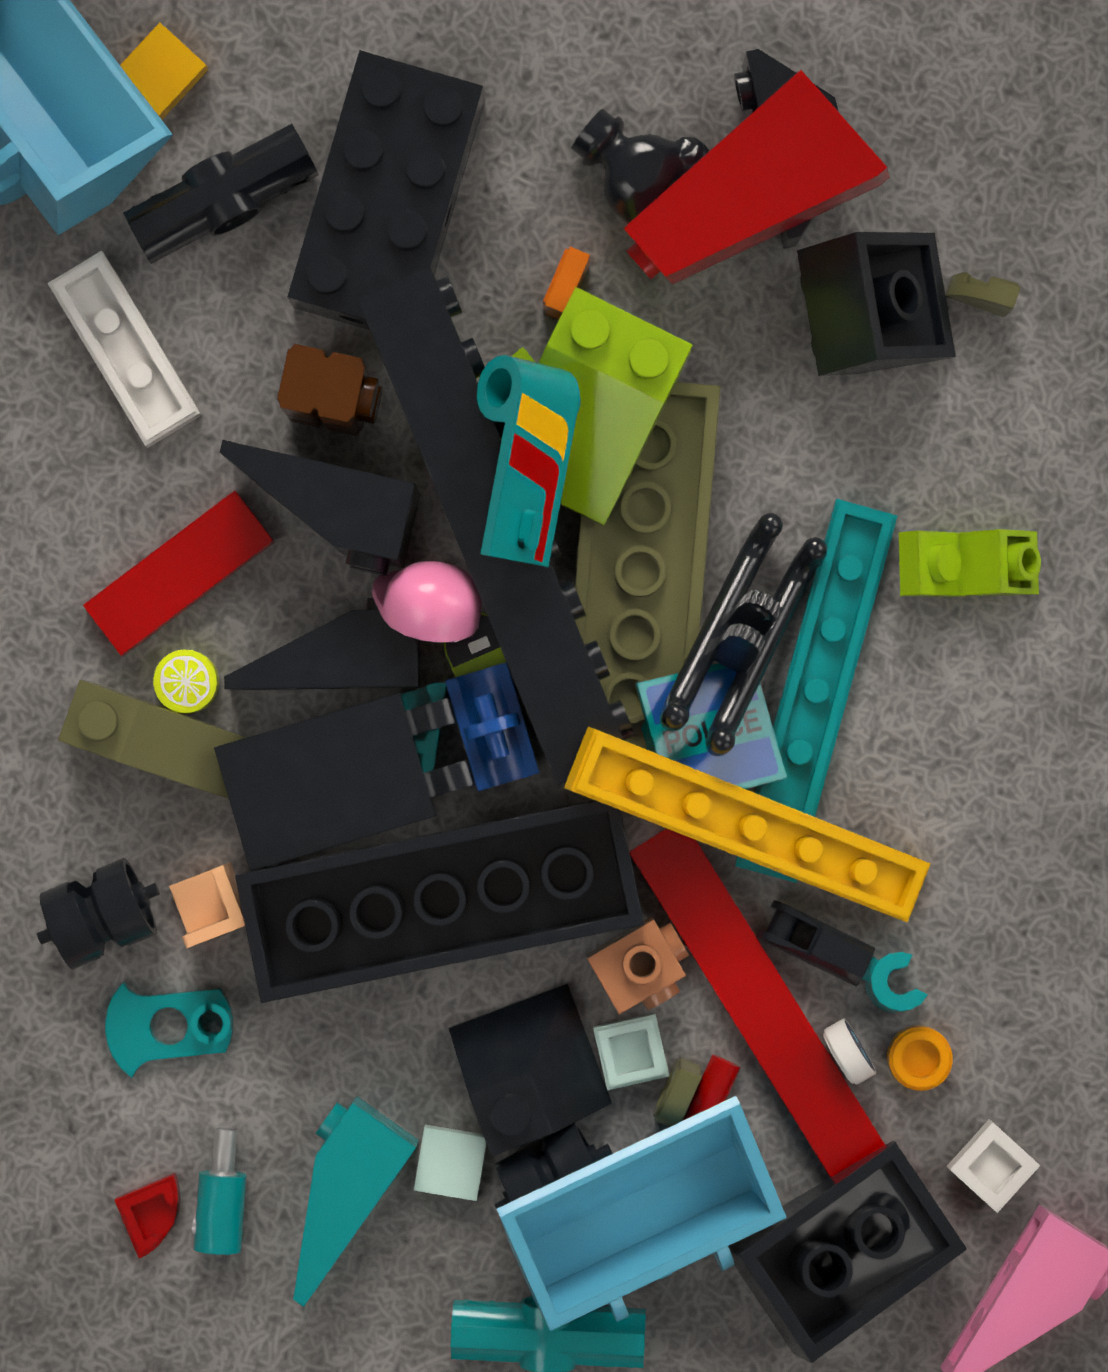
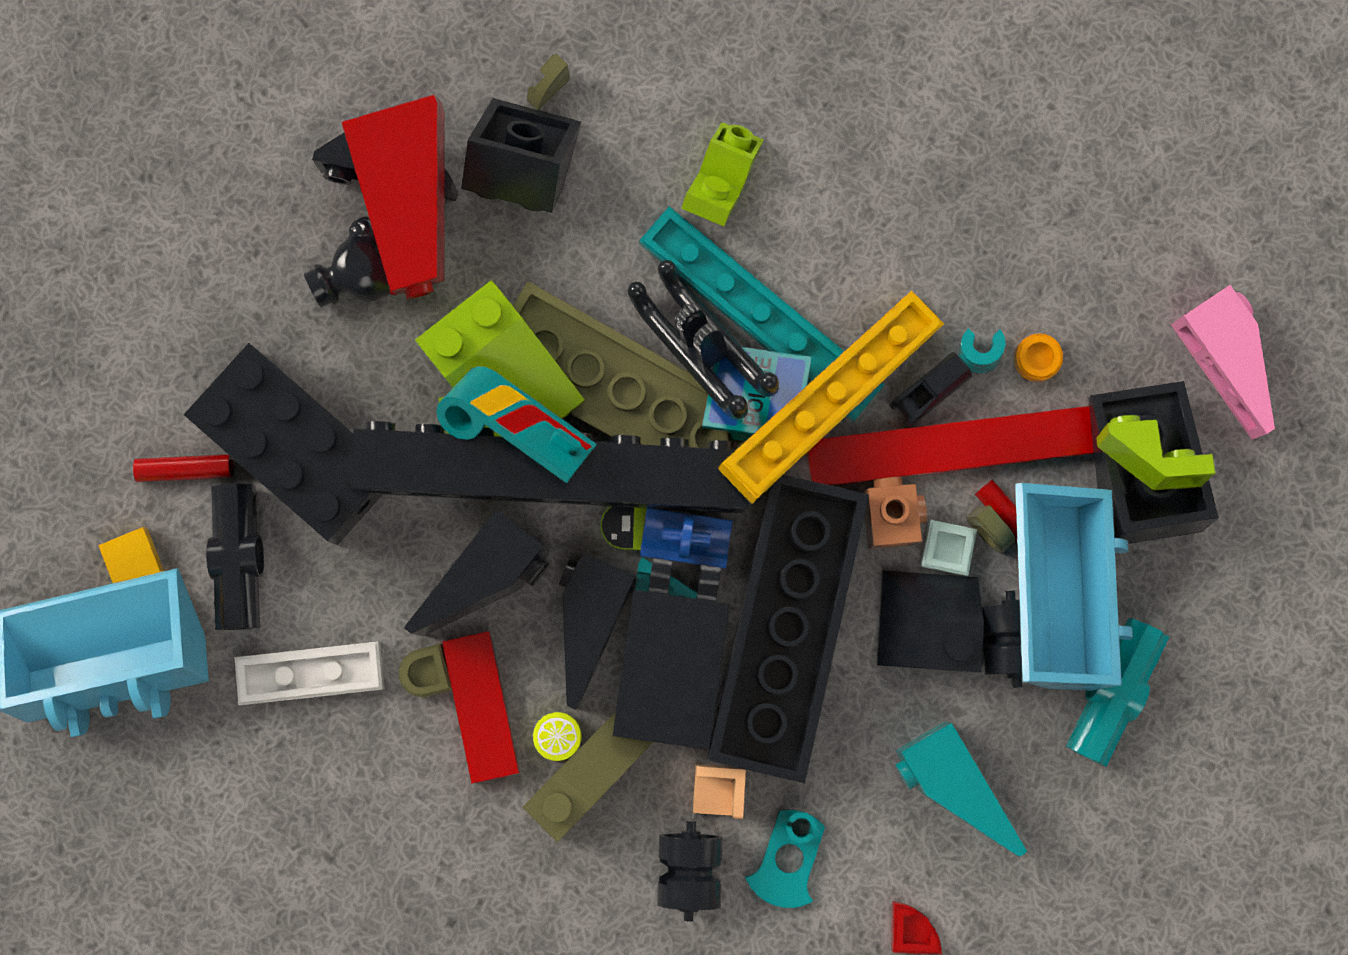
camera: 65 degrees left, 5 degrees down
(189, 487) = (425, 672): none -> olive tile
(220, 1200) = (926, 877): teal piece -> none
(299, 77) = (183, 468): none -> red piece
(328, 390) = (404, 542): reddish brown brick -> none
(429, 601) = (581, 539): bright pink cap -> none
(450, 1162) = (970, 705): light aqua tile -> none
(568, 275) = (409, 352): orange tile -> none
(848, 1227) = (1139, 450): none -> lime slope
(849, 1052) = (1014, 401): white tile -> none
(993, 1166) = (1133, 341): white plate -> none

